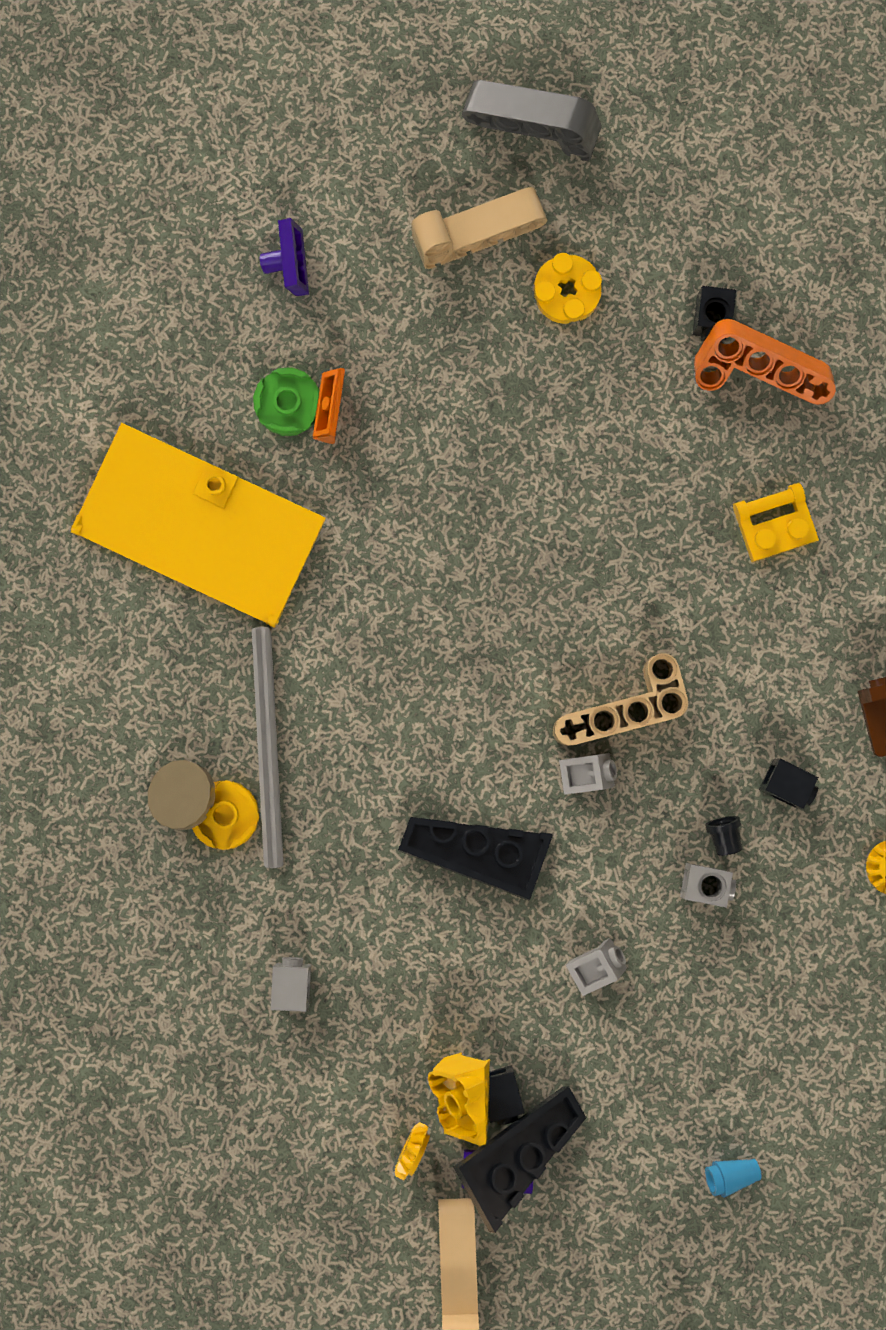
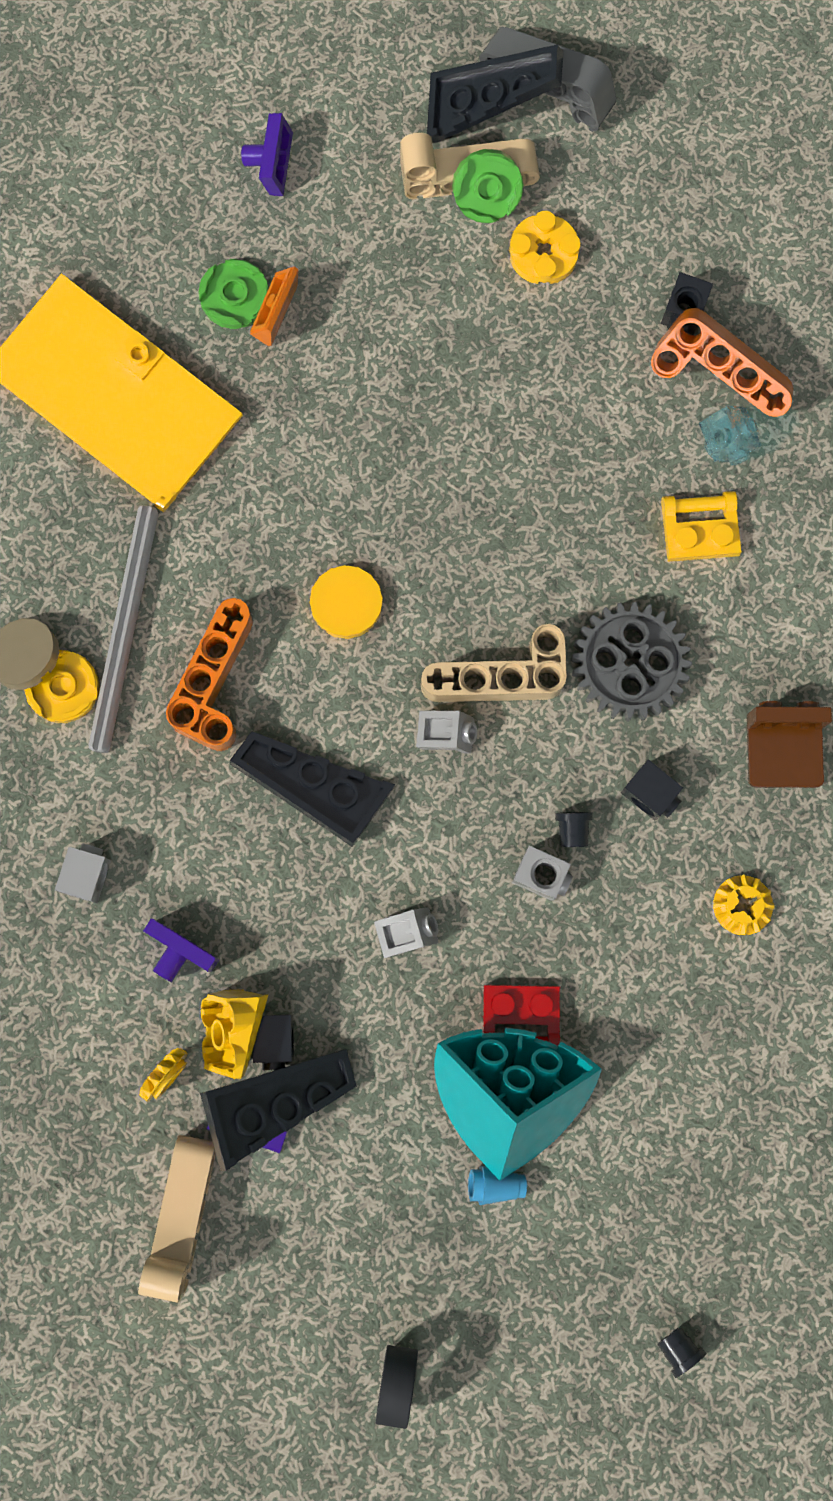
camera: 10 degrees right, 5 degrees down
(364, 768) = (217, 670): none -> orange beam
(395, 1034) = (177, 951): none -> dark purple tile
(465, 672) = (346, 602): none -> yellow tile
(479, 147) = (486, 88): none -> black wing
(501, 242) = (487, 185): none -> bright green tile
(718, 1008) = (523, 1006): none -> red plate
(727, 1092) = (511, 1093): none -> teal brick
(758, 641) = (656, 640): none -> dark grey gear
(784, 432) = (730, 435): none -> clear light blue brick

